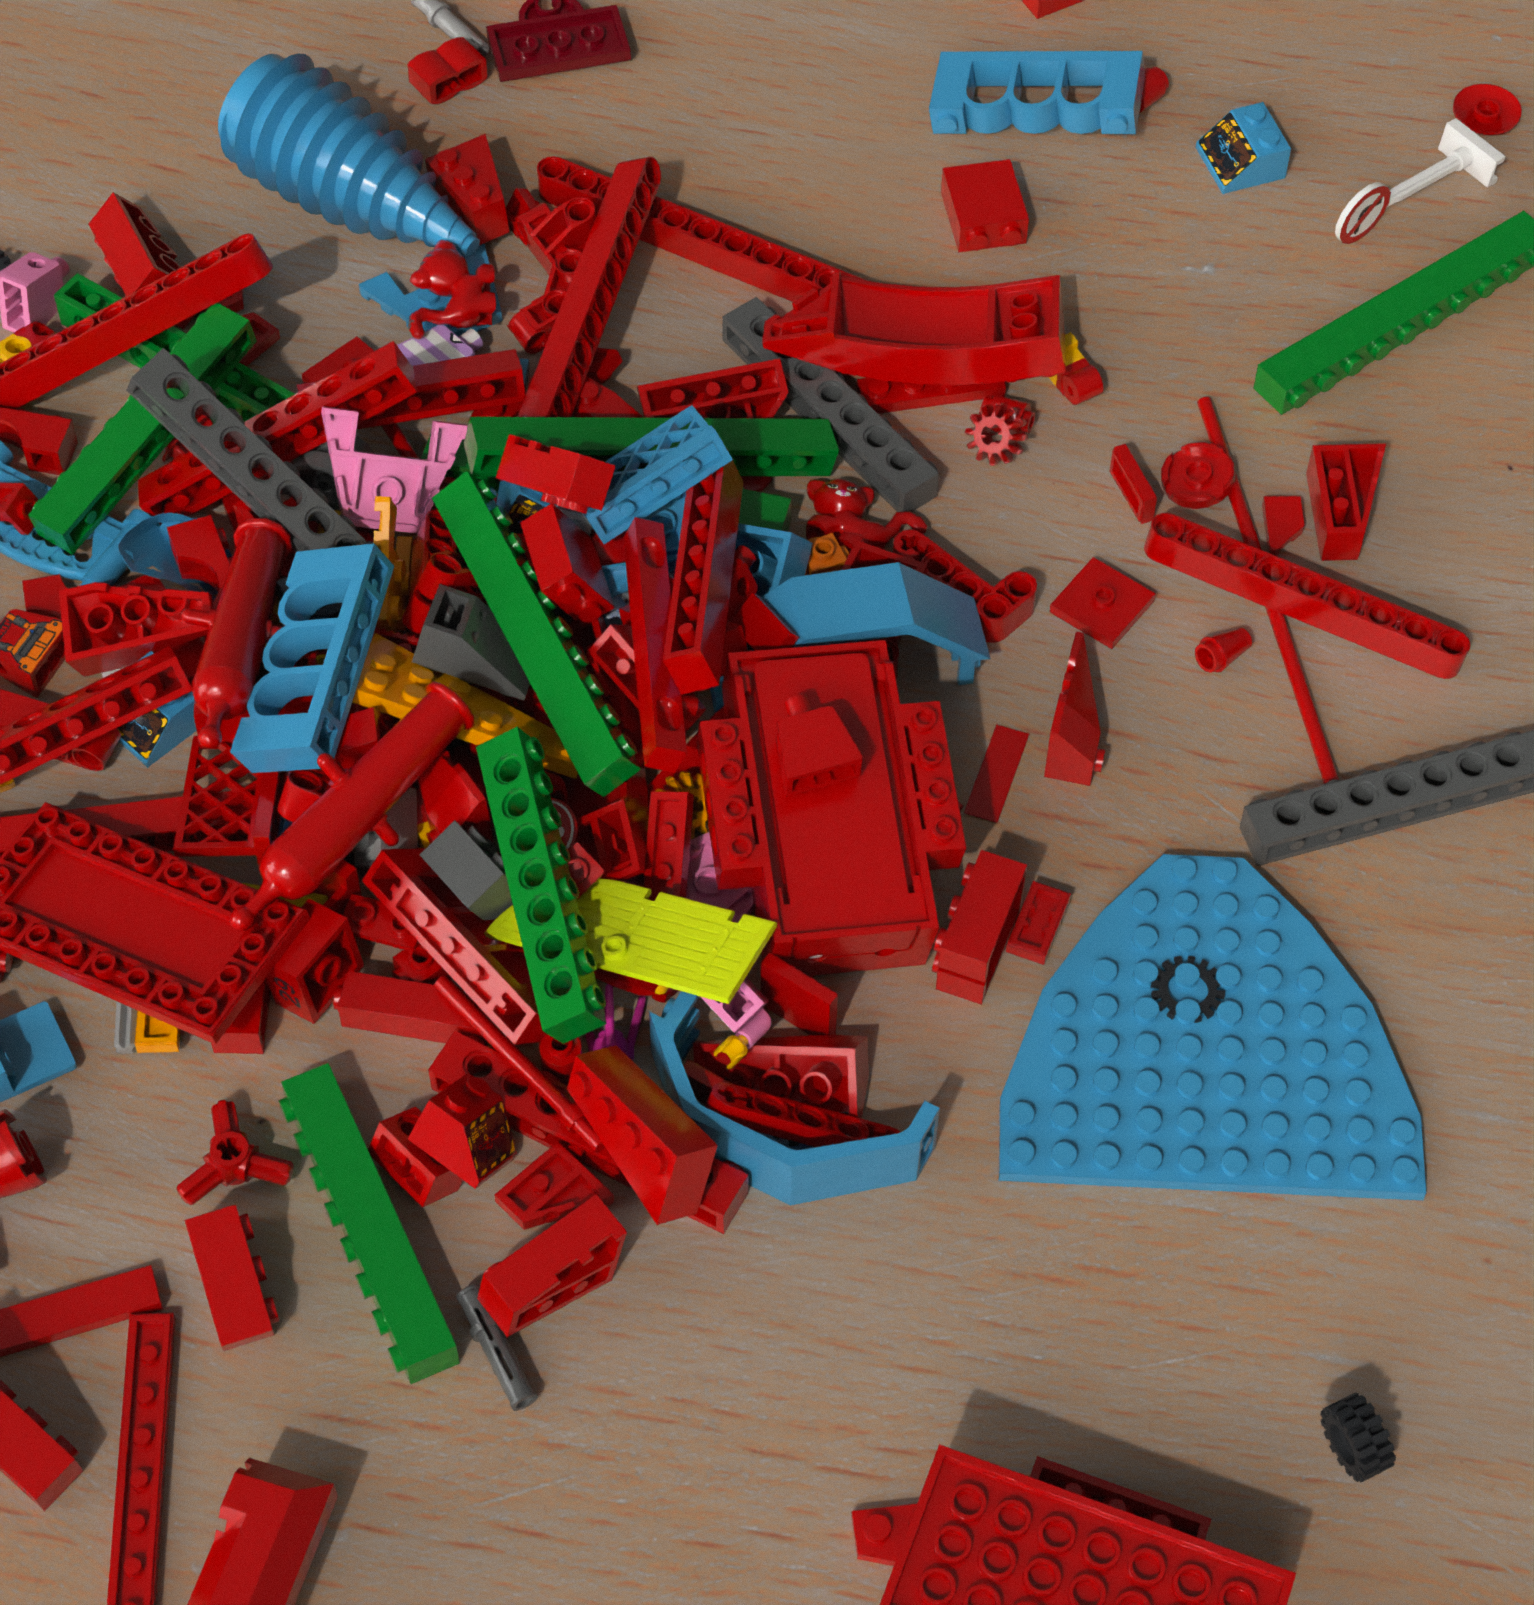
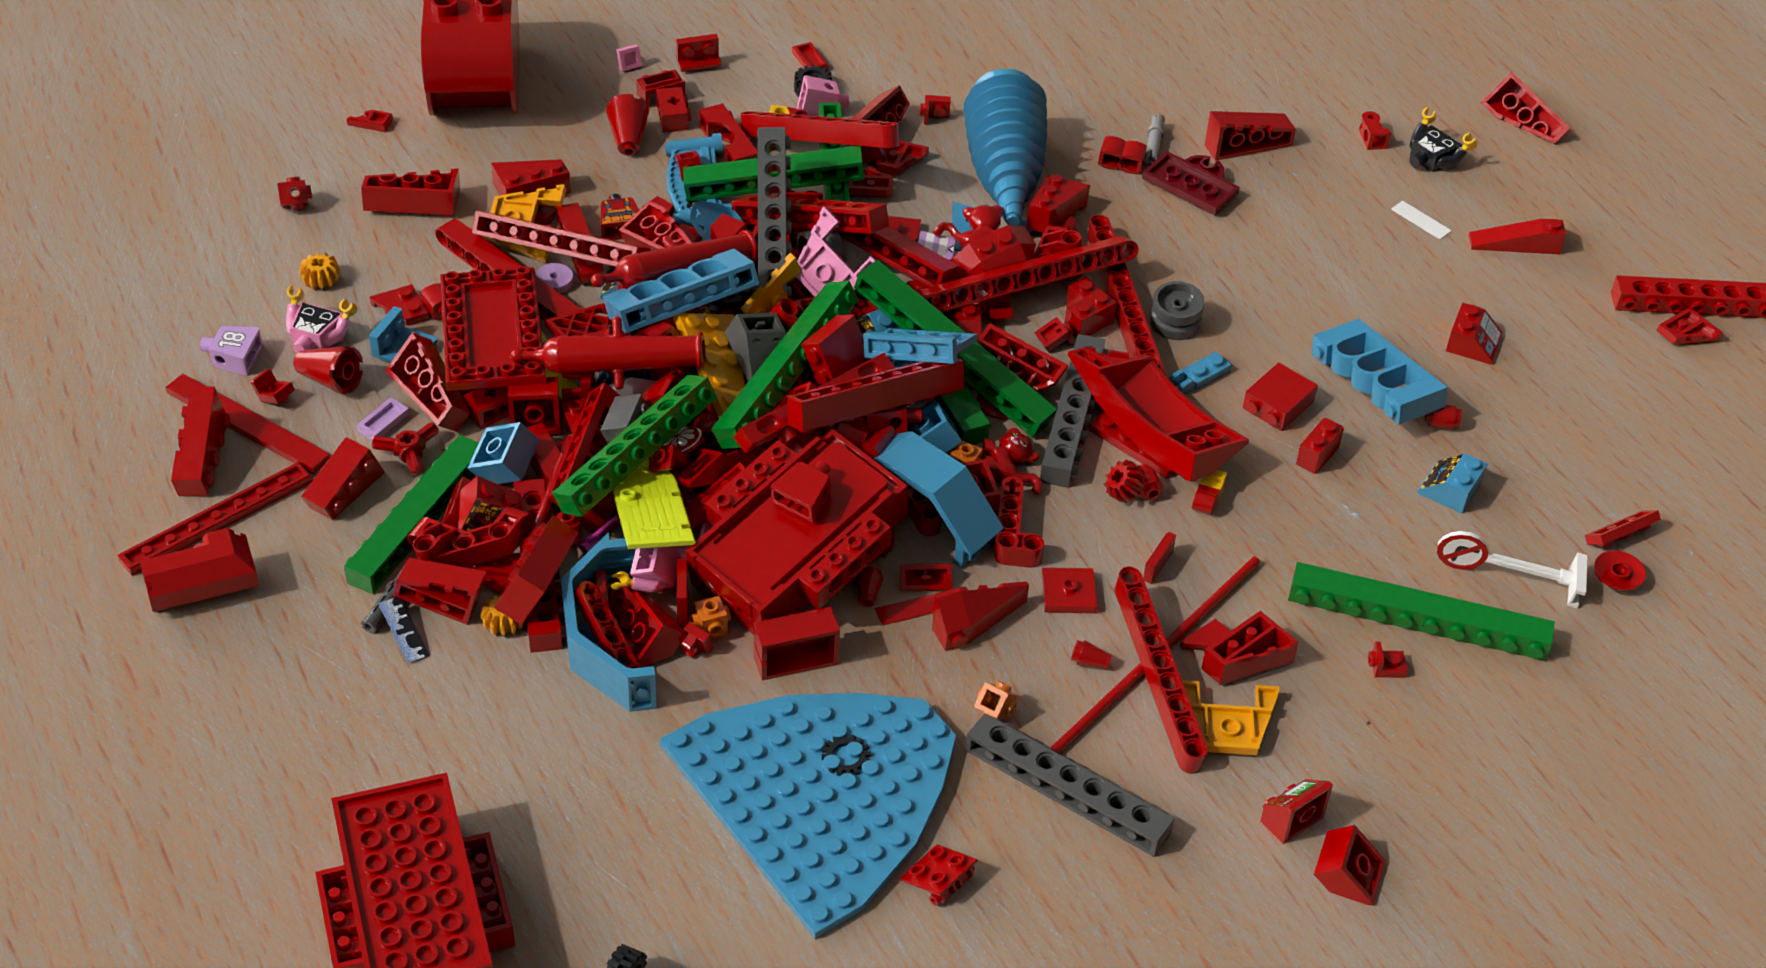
camera: 50 degrees right, 10 degrees down
(59, 780) = (556, 276): none -> lavender piece
(138, 1061) = (422, 376): none -> red wedge
(140, 1160) = (383, 419): none -> lavender tile
(168, 187) = (935, 107): none -> red bracket
(372, 1050) = (504, 453): none -> dark azure brick
(478, 1215) = (456, 547): none -> red connector
(526, 303) = (995, 250): none -> red wedge
(560, 474) = (875, 308): red wedge -> none
(567, 1360) = (403, 629): none -> sticker
(640, 1238) = (497, 621): none -> light orange gear
(678, 274) = (1088, 308): none -> red brick
(688, 340) = (1054, 334): none -> red bracket
(768, 198) = (1177, 310): none -> dark grey wheel
(856, 991) = (711, 616): none -> orange brick
(874, 245) = (1201, 372): none -> dark azure hinge
(877, 1028) = (696, 641): none -> red tile
(968, 723) = (926, 576): none -> red slope
(1038, 922) = (830, 672): red plate -> none
(1093, 223) = (1320, 445): none -> red brick
(1198, 475) = (1198, 583): red tile -> none
(1239, 788) = (988, 700): none -> orange brick
(1428, 1007) = (940, 873): none -> red hinge
(1430, 63) = (1623, 528): none -> red plate
(1435, 582) = (1231, 727): none -> light orange wing
(1447, 391) = (1387, 663): none -> red bracket

